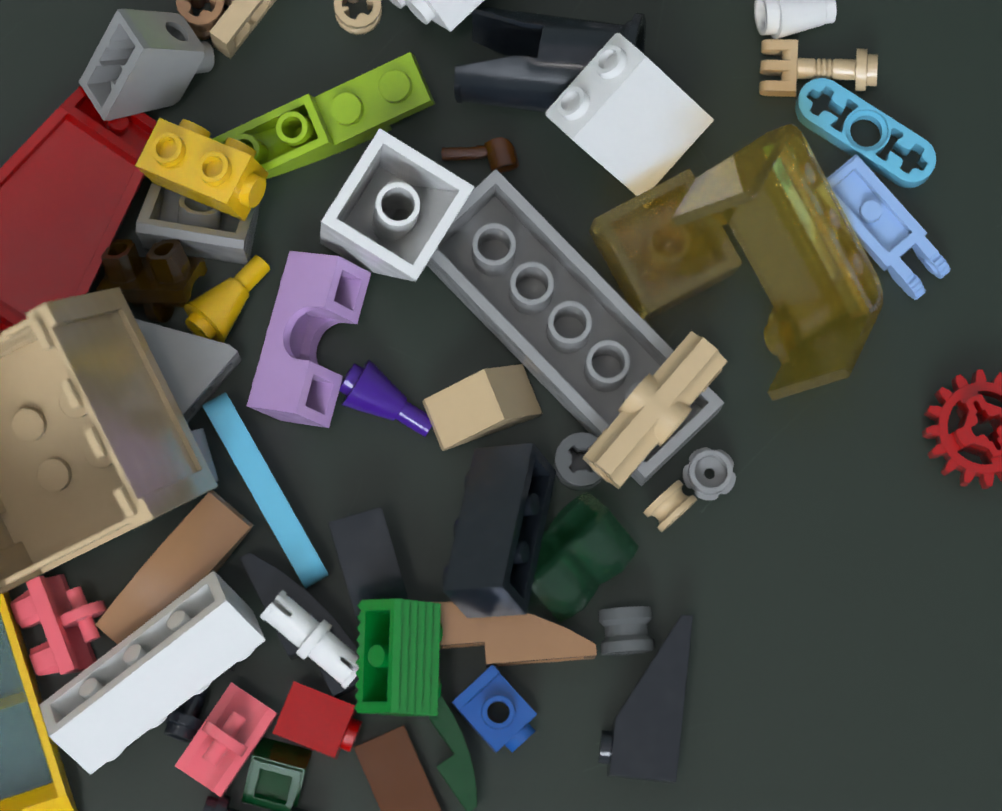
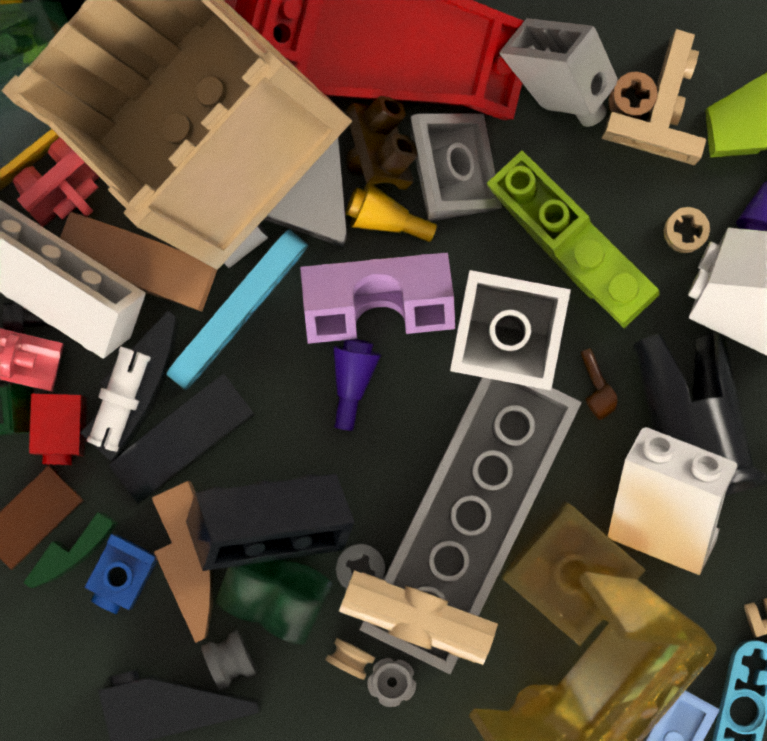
camera: 70 degrees right, 5 degrees up
(202, 168) = (486, 153): yellow brick -> none
(398, 657) = (126, 476): green brick -> none
(481, 405) = (377, 466): tan slope -> none

